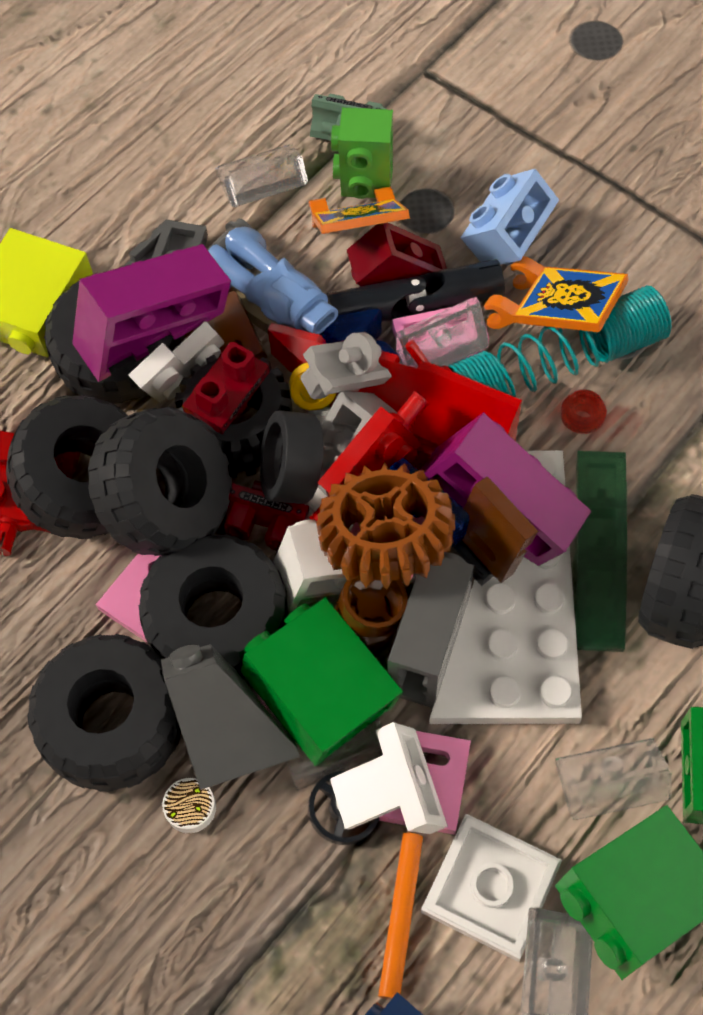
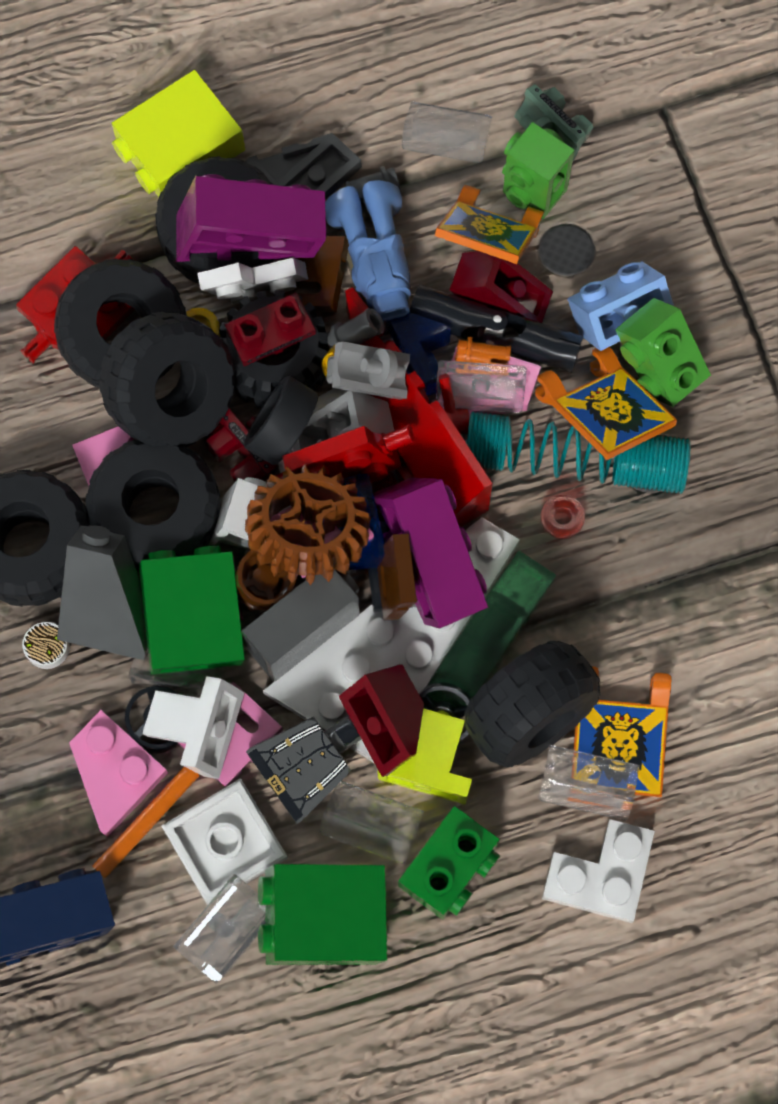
camera: 30 degrees right, 10 degrees up
(308, 336) = (357, 329): none -> dark grey pin
(336, 885) = (113, 770): none -> bright pink wing
(413, 314) = (482, 353): none -> orange pin
(521, 758) = (305, 763): none -> dark grey torso
(573, 228) = (662, 352): none -> bright green brick
(575, 663) = (386, 716): none -> dark red slope
(628, 673) = (436, 749): none -> neon yellow piece

